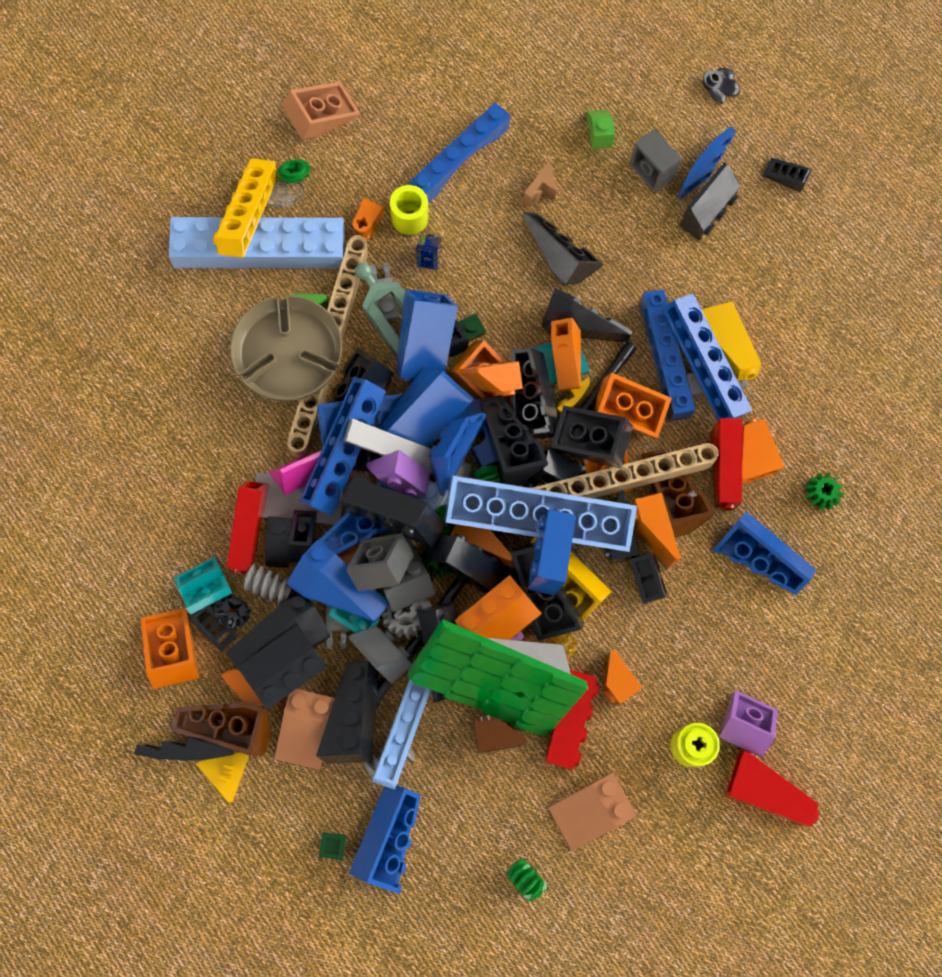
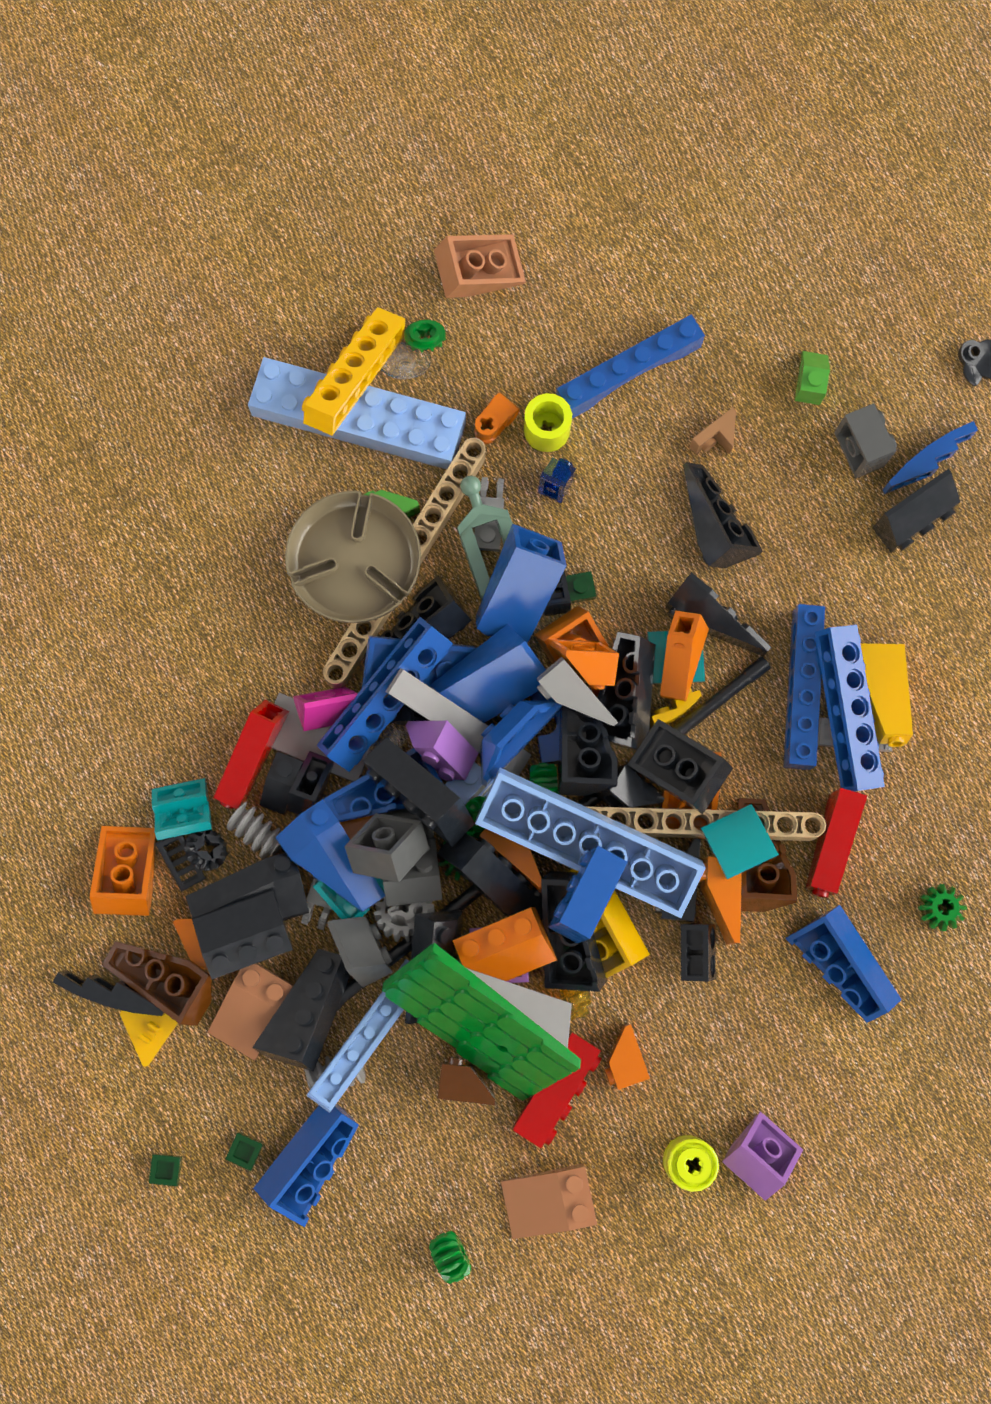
camera: 20 degrees right, 5 degrees up
(271, 881) = (165, 1169): none -> dark green plate
(485, 398) = (569, 690): none -> light grey slope
(637, 403) = (741, 739): orange slope -> none
(656, 480) = (739, 841): none -> teal slope
(759, 452) = (877, 836): orange slope -> none
(768, 791) = (756, 1237): red slope -> none

